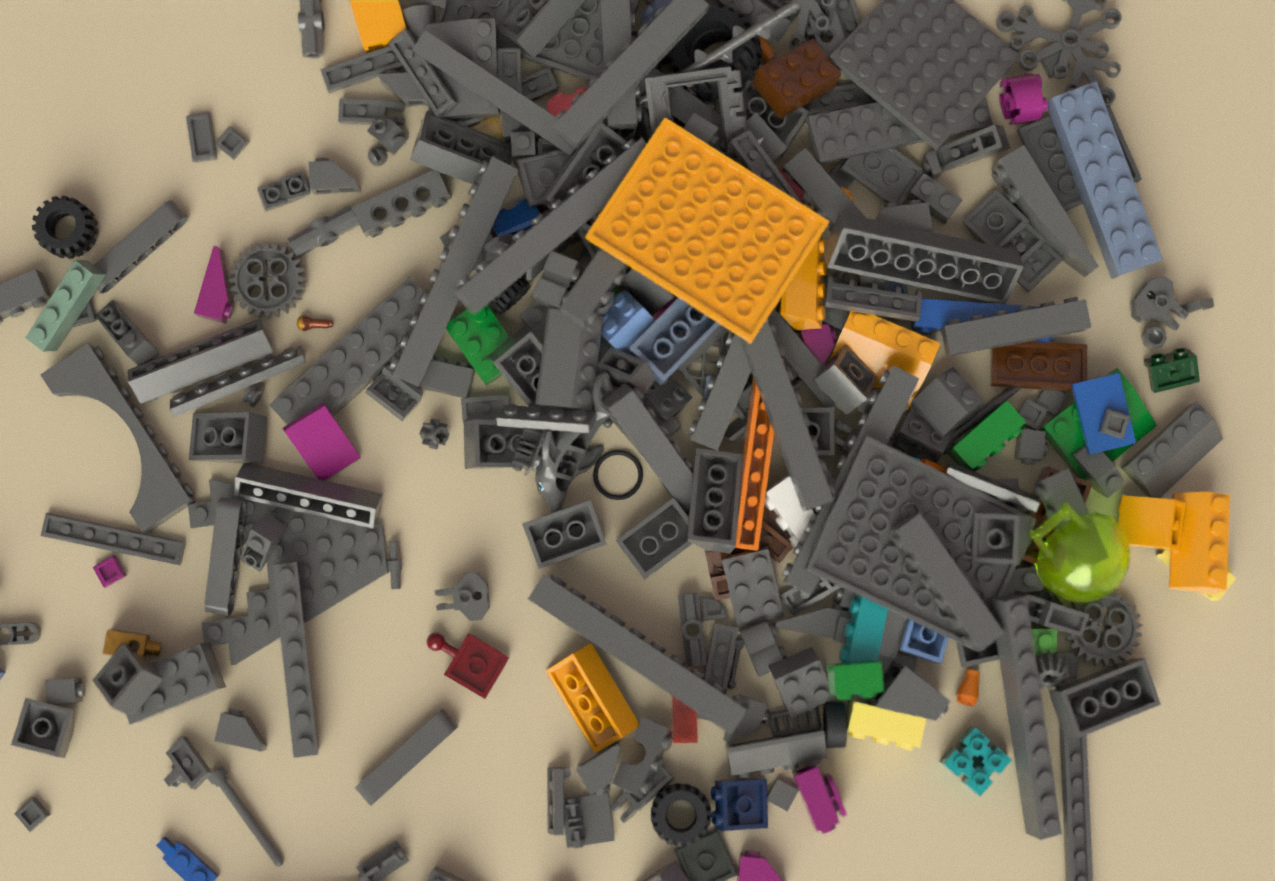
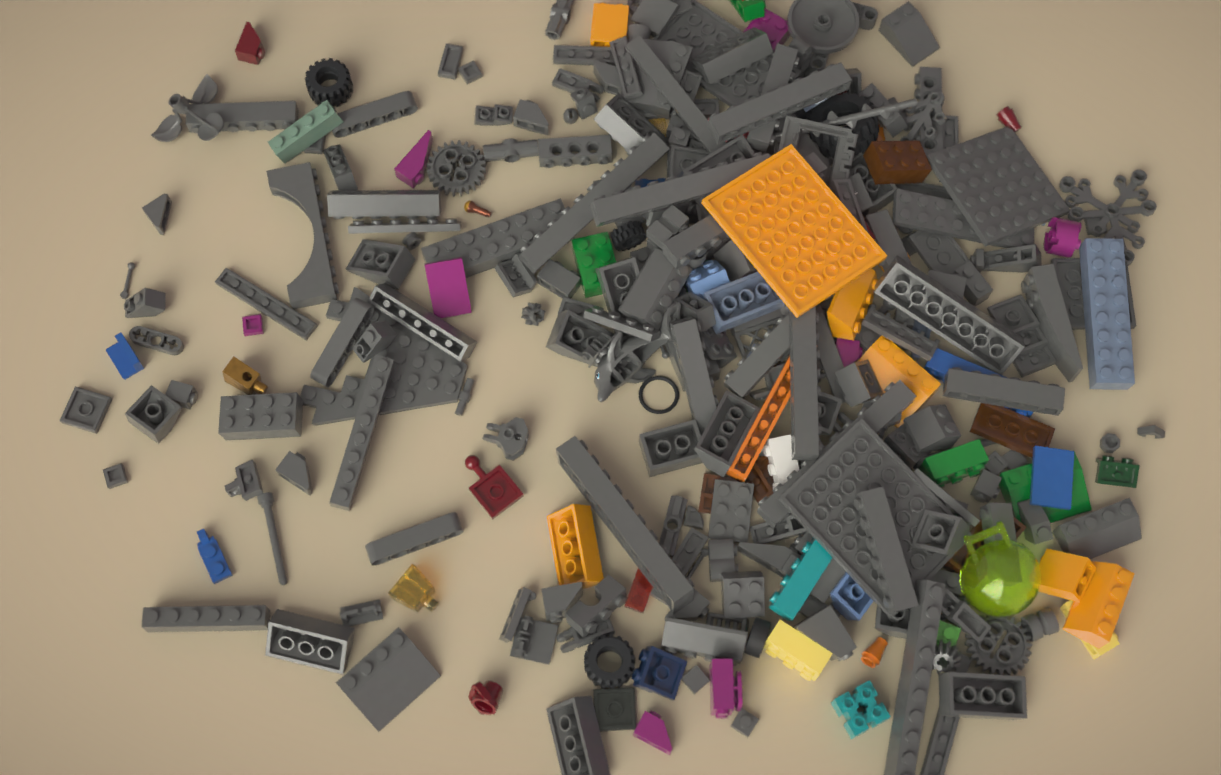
camera: 15 degrees right, 15 degrees down
(127, 680) = (232, 396): dark grey slope -> none
(432, 817) = (414, 591): none -> clear yellow torso
(564, 533) = (602, 416): dark grey slope -> none
(854, 822) = (744, 722): none -> dark grey plate
(855, 678) = (787, 596): green brick -> none
(1114, 424) = (1058, 486): dark grey tile -> none
(1142, 585) = (1042, 623): none -> dark grey wheel
(1160, 303) = (1118, 416): dark grey hinge -> none

